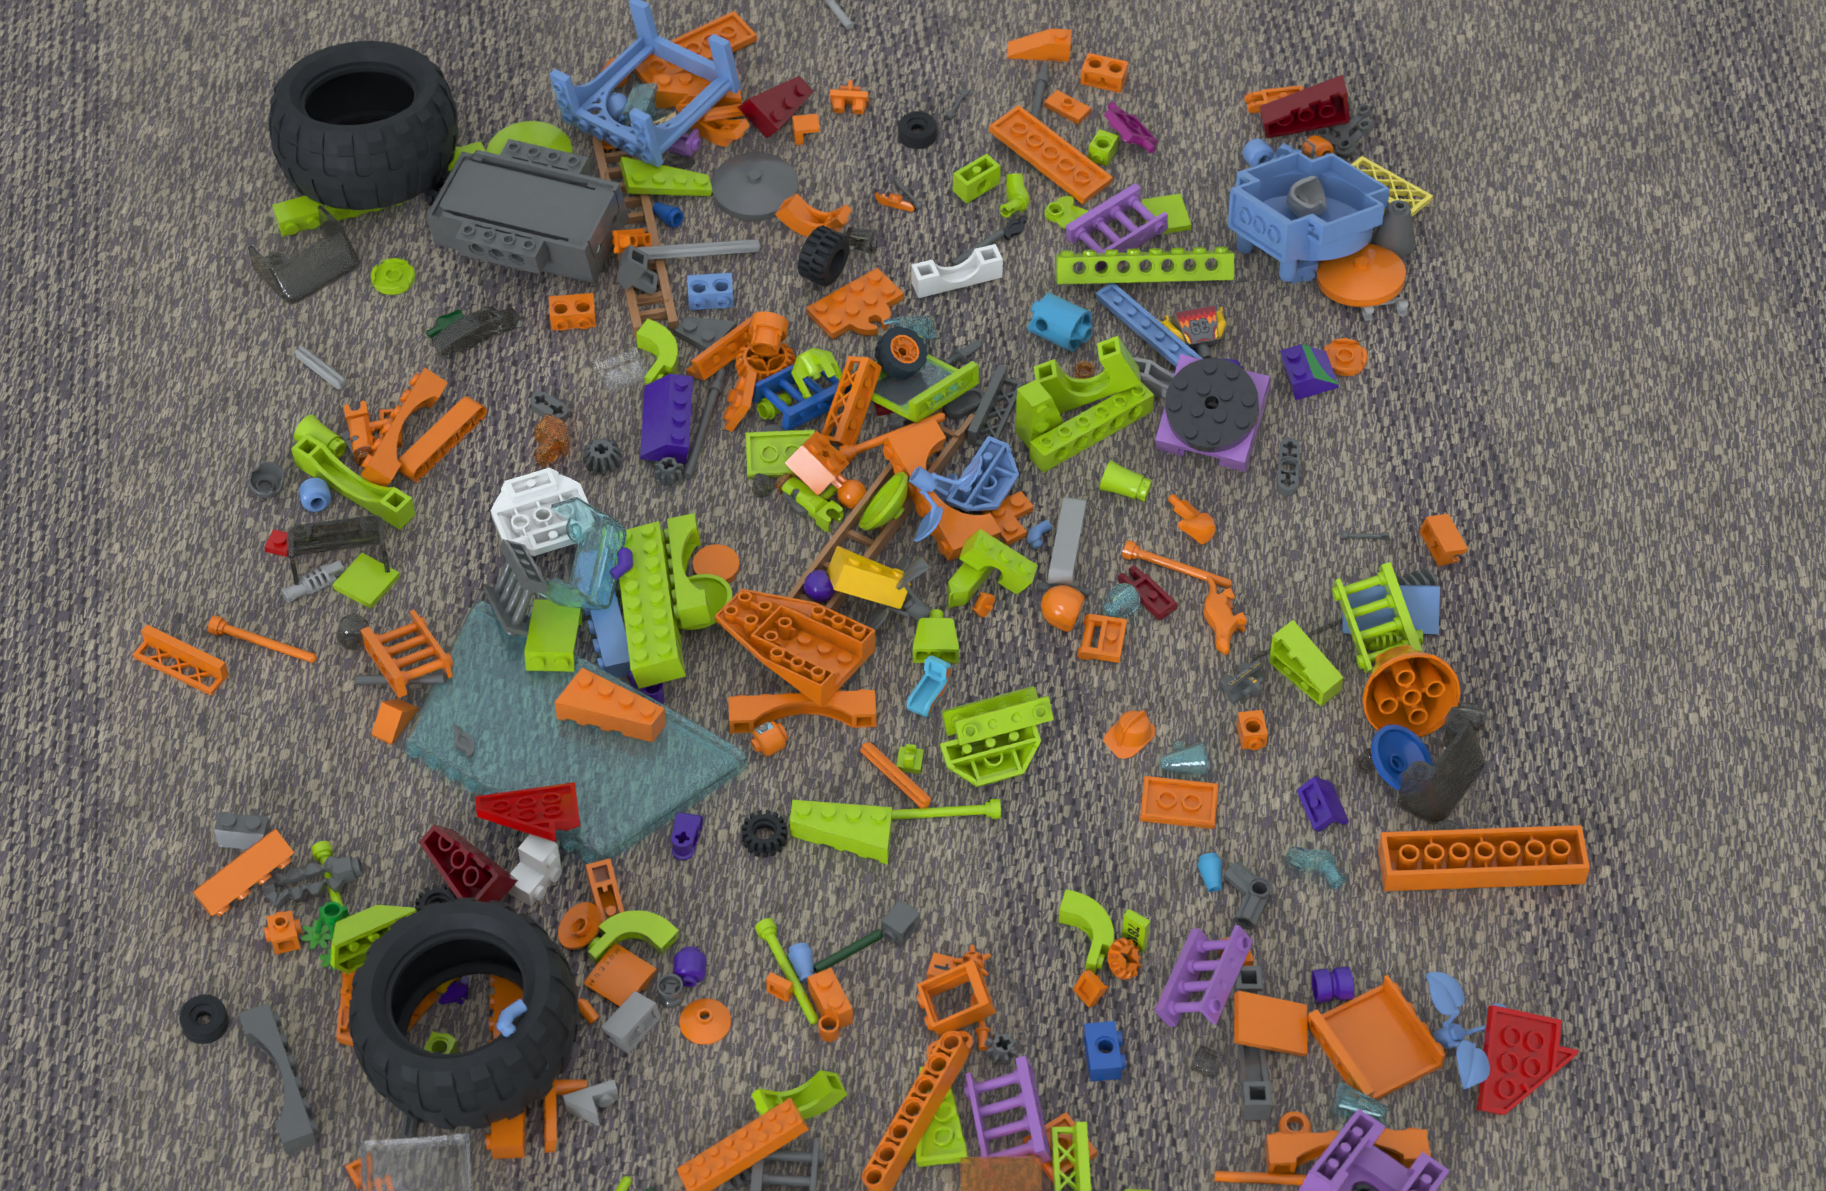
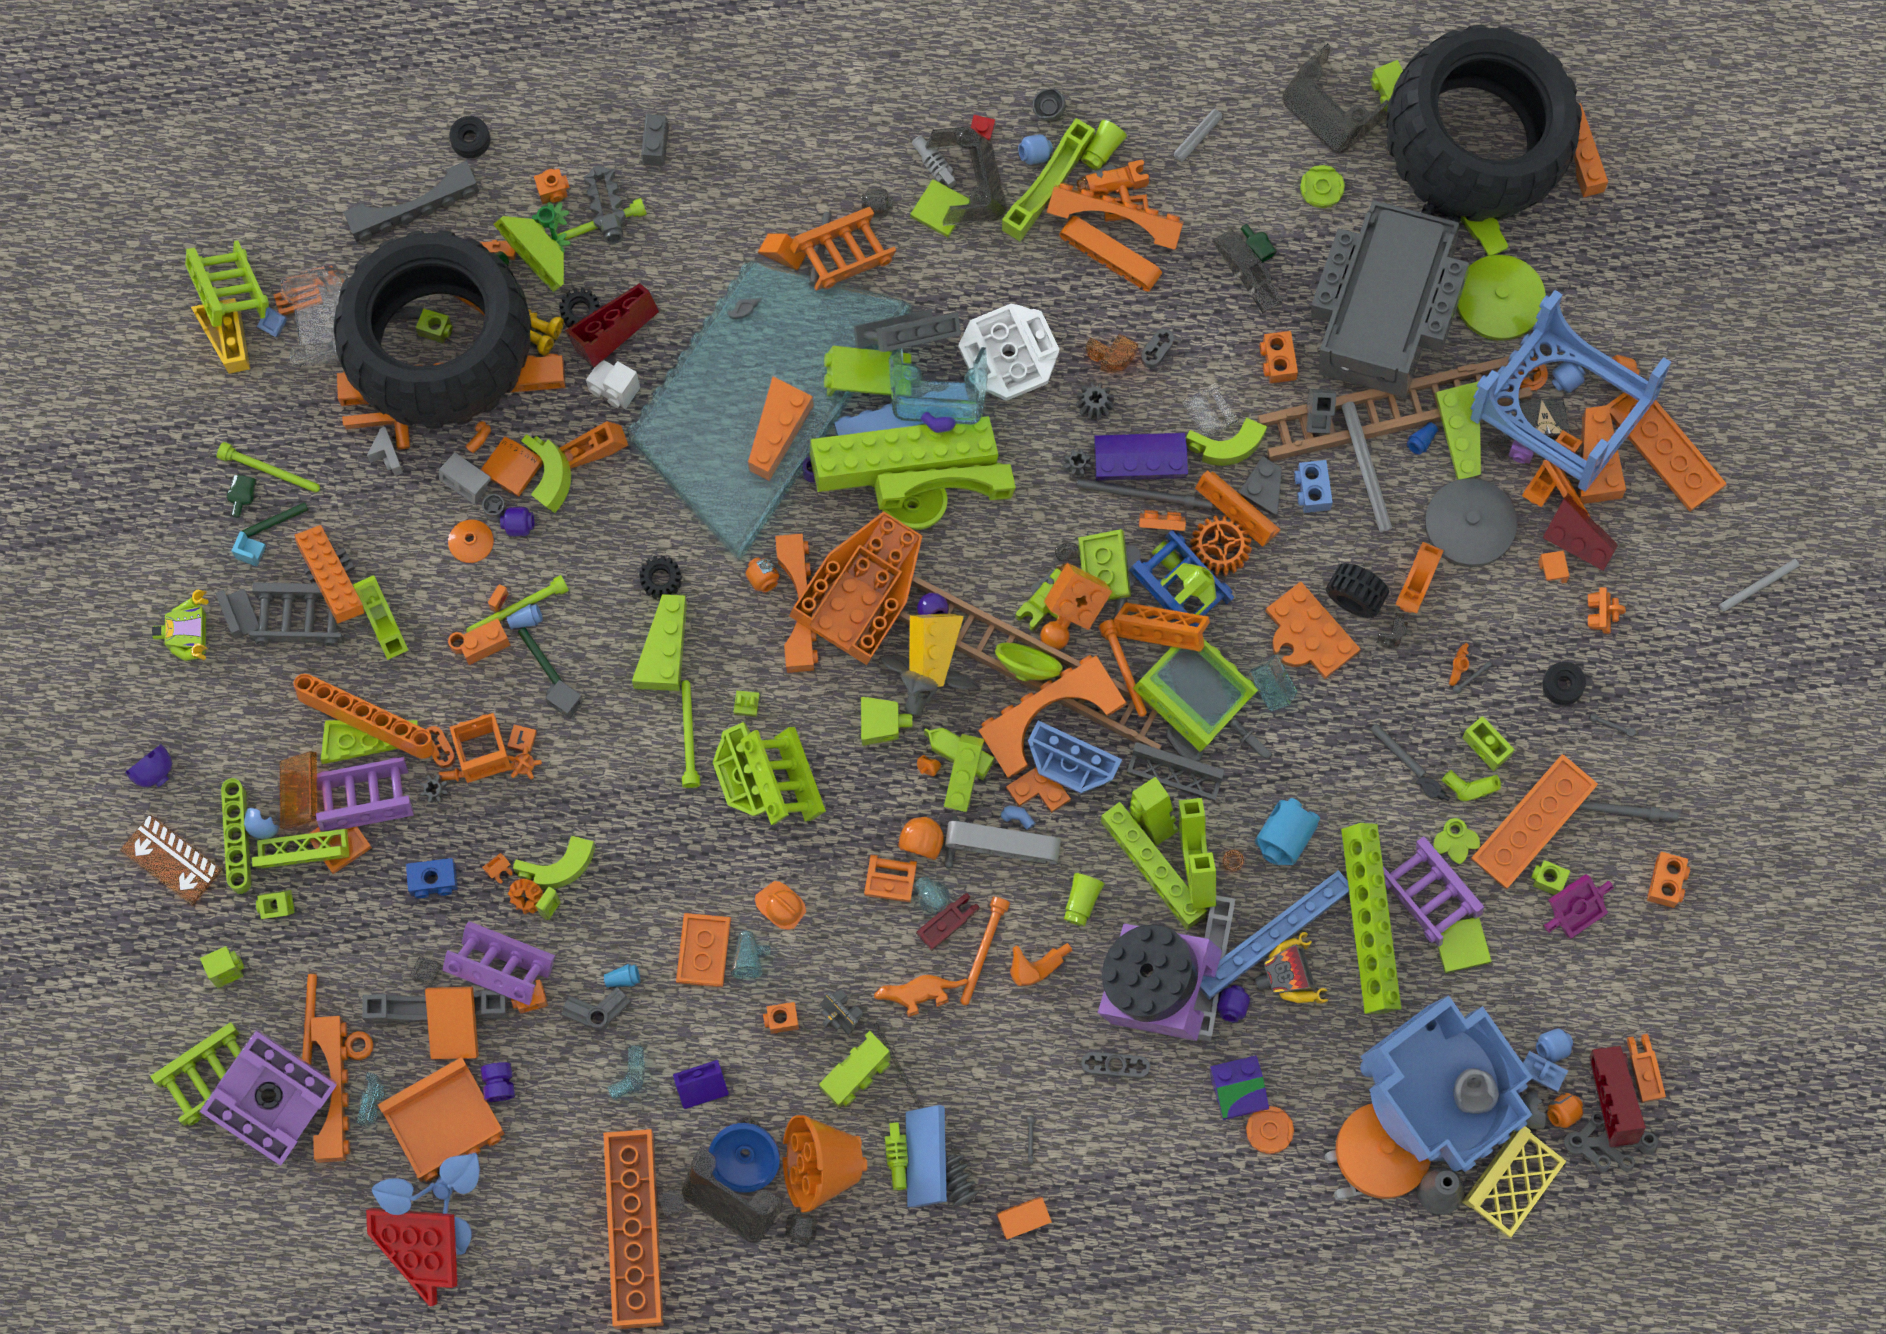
camera: 90 degrees right, 20 degrees up
(181, 652) = (845, 66): orange fence -> none
(218, 626) = (881, 89): orange piece -> none
(243, 872) = (606, 144): orange brick -> none
(508, 1015) = (385, 350): medium blue arm -> none
(533, 810) = (660, 372): red wing -> none
(579, 925) = (559, 426): orange dish -> none
(633, 237) = (1364, 398): orange hips -> none
(641, 99) = (1567, 394): clear light blue panel -> none
(685, 835) = (660, 510): dark purple piece -> none
(718, 561) = (968, 516): orange tile -> none
(767, 333) = (1236, 537): orange piece -> none
(895, 775) = (726, 689): orange axle -> none
(897, 343) = (1219, 682): black wheel -> none
(930, 687) = (821, 716): medium azure animal -> none
(942, 487) = (1035, 693): medium blue plant -> none
(981, 266) = (1348, 718): white arch -> none
(1044, 45) = (1704, 811): orange slope -> none
(1067, 107) = (1616, 842): orange plate -> none
(1393, 599) = (919, 1151): lime fence -> none

